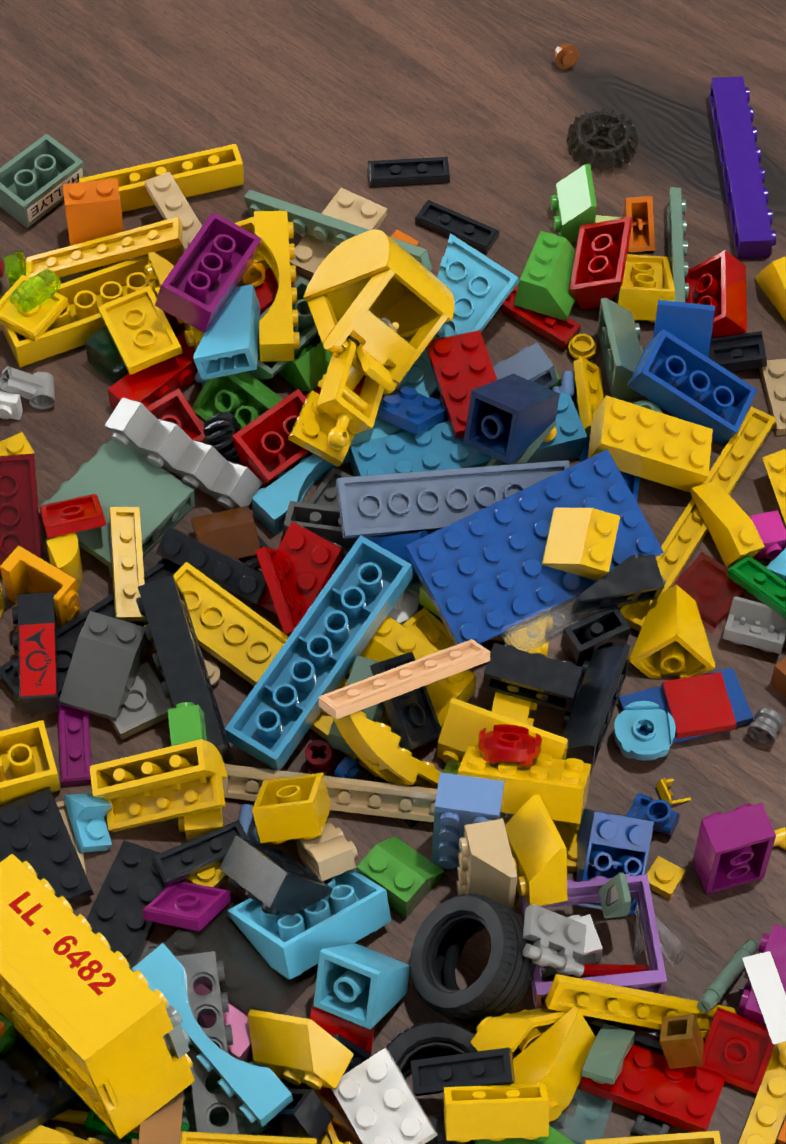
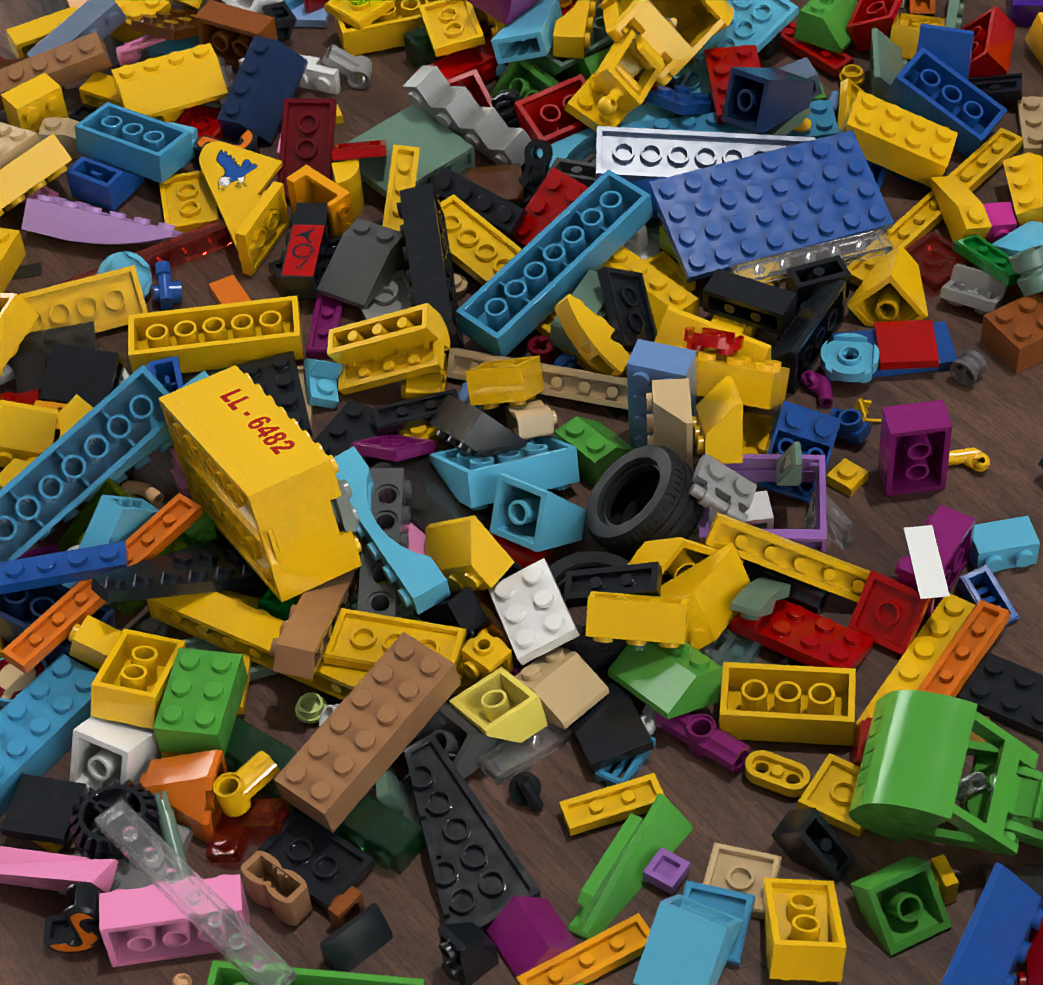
camera: 15 degrees right, 10 degrees down
(186, 723) = (419, 292): bright green brick -> none
(270, 515) = (536, 167): none -> black piece
(278, 589) = (528, 209): red tile -> none
(403, 679) = (625, 280): light nougat tile -> none
(581, 541) = (813, 196): yellow slope -> none
(617, 765) = (820, 386): none -> magenta arm
(628, 583) = (850, 238): black slope -> none
(681, 1041) = (834, 594): pearl gold brick -> none
(727, 976) = (881, 556): sand green piece -> none

